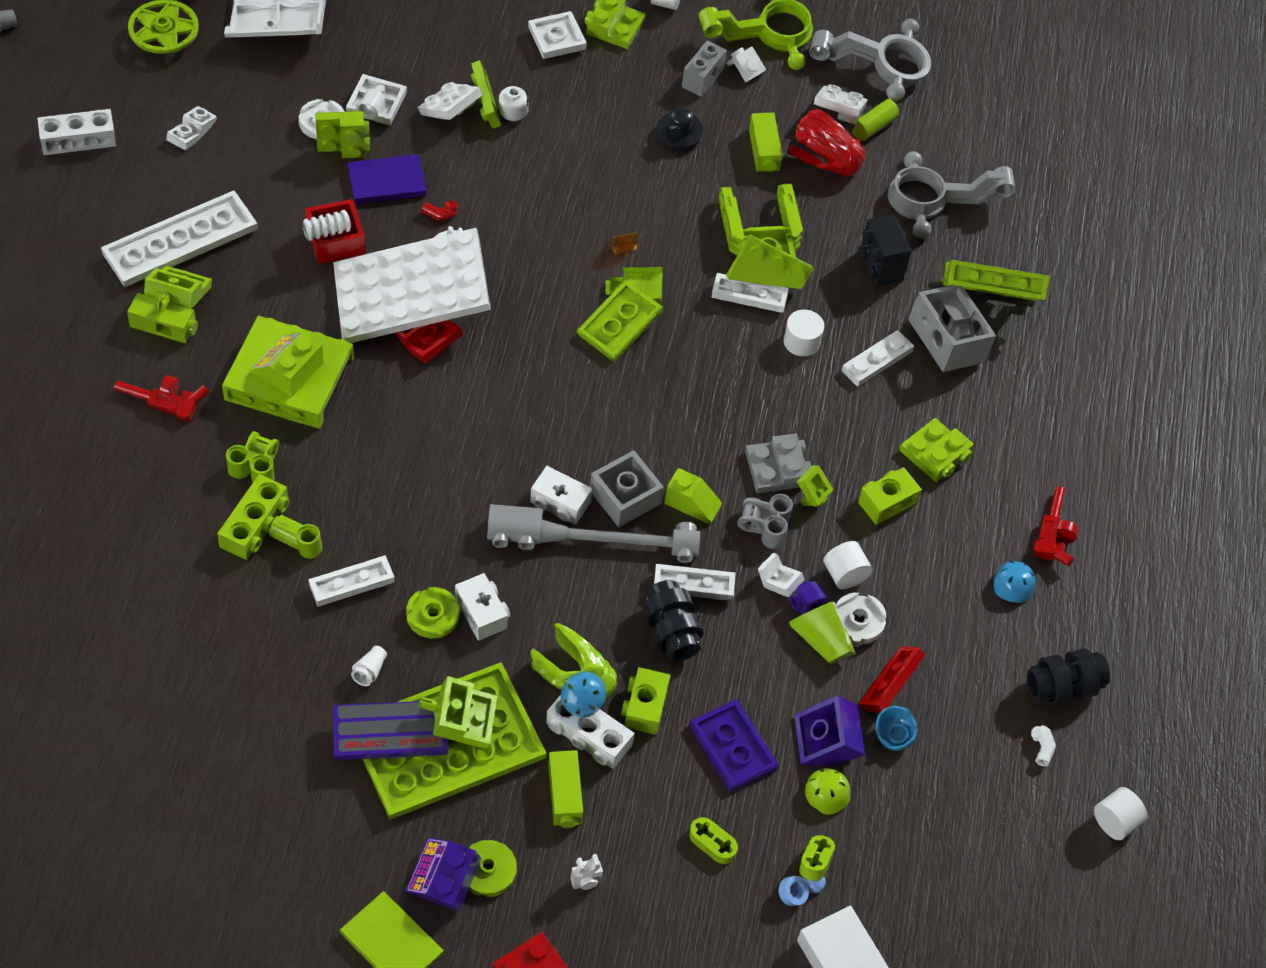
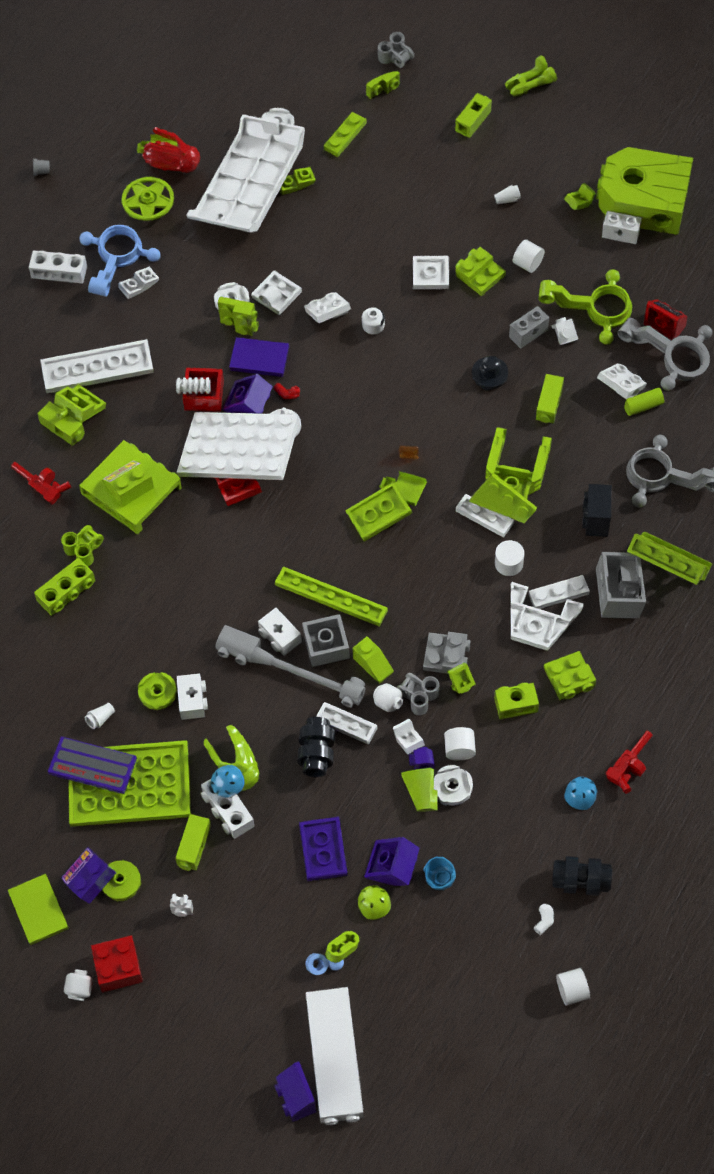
camera: 30 degrees right, 5 degrees up
(147, 138) = (102, 283): none -> light blue piece
(297, 535) = (88, 608): lime piece -> none
(351, 581) = (112, 651): white plate -> none
(393, 224) = (248, 395): none -> dark purple slope
(462, 713) = (141, 769): lime plate -> none
(489, 110) = (357, 305): lime plate -> none
(605, 436) = (331, 596): none -> lime plate
(642, 715) = (273, 809): lime brick -> none
(713, 840) = (274, 913): lime beam -> none
(733, 536) = (388, 697): none -> white head
(829, 140) = (593, 413): red hair -> none
(858, 21) = (664, 319): none -> red slope
(868, 402) = (538, 626): none -> white wing
(892, 679) = (455, 837): red plate -> none

